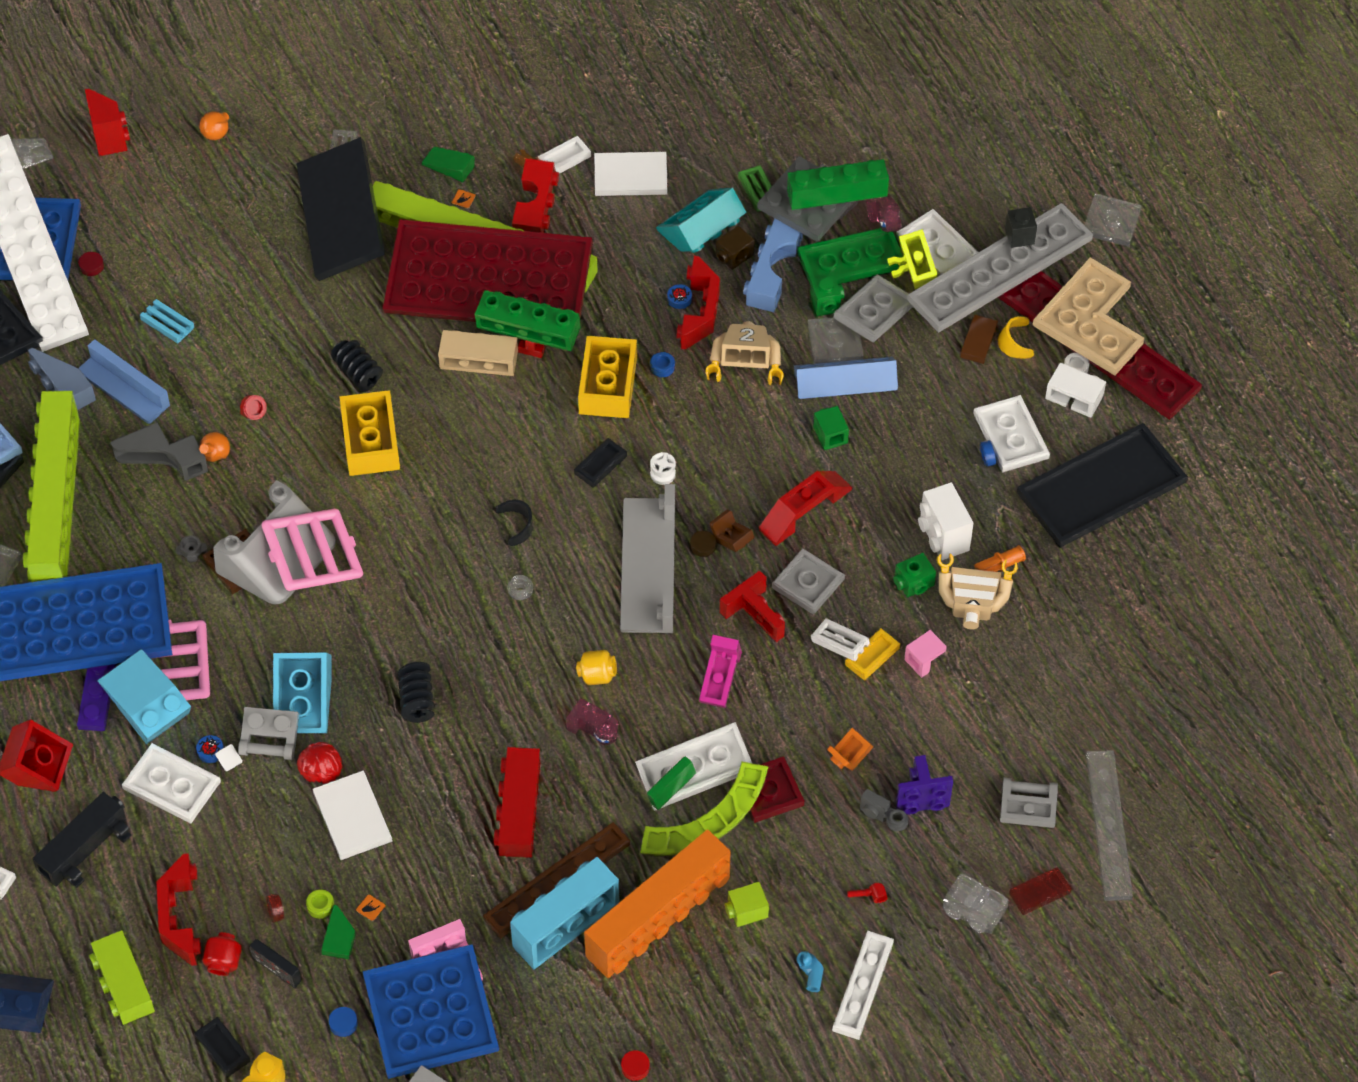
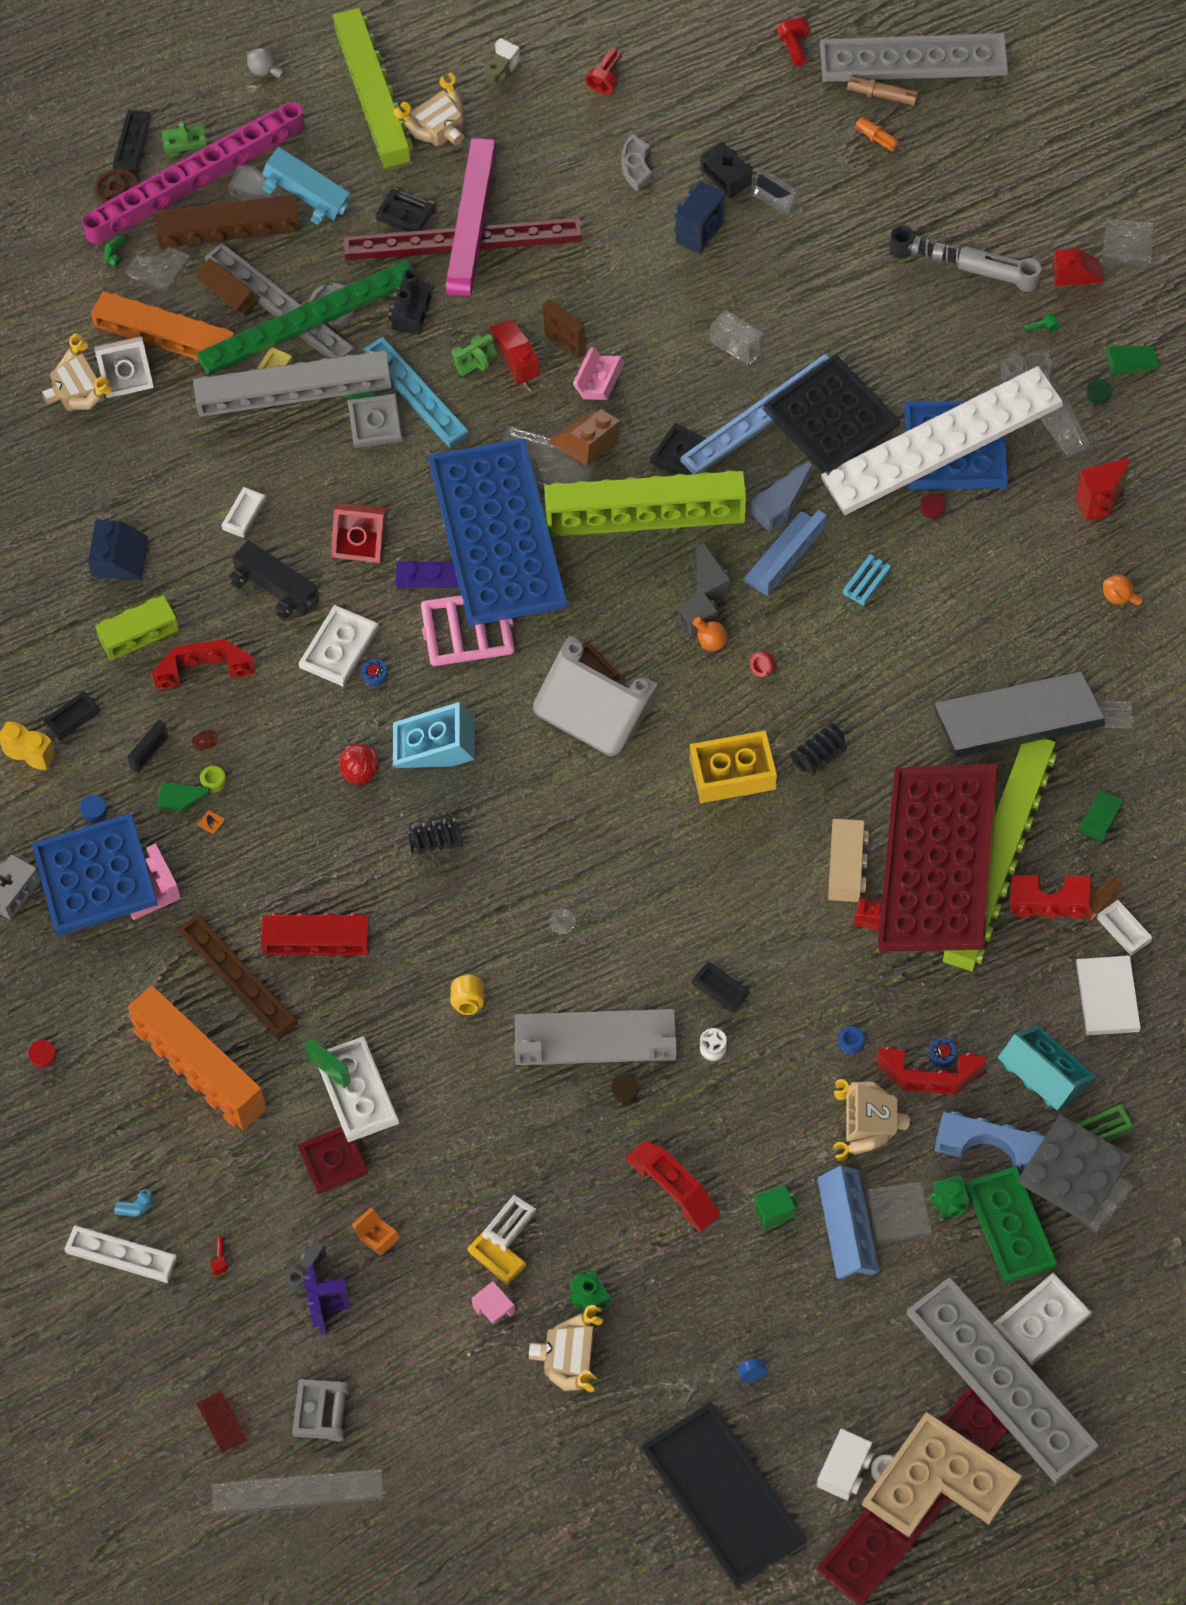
camera: 90 degrees right, 5 degrees up
(145, 696) = (418, 606): medium azure slope -> none
(191, 542) = (595, 625): flat silver plate -> none
(222, 954) = (158, 703): red head -> none
(228, 757) = (364, 688): white sticker -> none
(269, 724) = (396, 716): light grey plate -> none
(311, 579) = (565, 752): bright pink bar -> none
(352, 815) = (305, 796): white tile -> none
(463, 198) = (1057, 835): orange sticker -> none
(522, 508) = (642, 923): black helmet -> none
(528, 320) = (875, 895): green brick -> none
(564, 912) = (188, 976): medium azure brick -> none
(593, 721) = (407, 996): clear pink leg -> none
(607, 377) = (819, 981): yellow brick -> none
(719, 821) = (289, 1107): lime tile -> none
(720, 671) = (466, 1106): dark pink bracket -> none
(729, 532) = (634, 1112): reddish brown bracket -> none
(734, 247) = (1009, 1102): dark brown brick -> none
(747, 904) = (203, 1142): lime brick -> none
(749, 597) = (546, 1138): red bracket -> none
(808, 581) = (583, 1192): light grey tile -> none
(837, 184) = (1079, 1189): green brick -> none
(874, 308) = (940, 1249): light grey tile -> none
(884, 211) = (1070, 1258): clear pink leg -> none
(916, 259) = (1003, 1289): neon yellow brick -> none
(945, 521) = (650, 1319): white brick -> none
(975, 904) = (201, 1355): clear brick -> none
(979, 339) = (912, 1363): reddish brown tile -> none
(995, 563) = (613, 1383): orange axle -> none
(1008, 345) = (913, 1388): yellow helmet -> none
(1011, 433) = (786, 1398): white tile -> none
(1021, 227) = (1045, 1391): pearl dark grey brick -> none
(1112, 219) = (1100, 1514): clear tile -> none

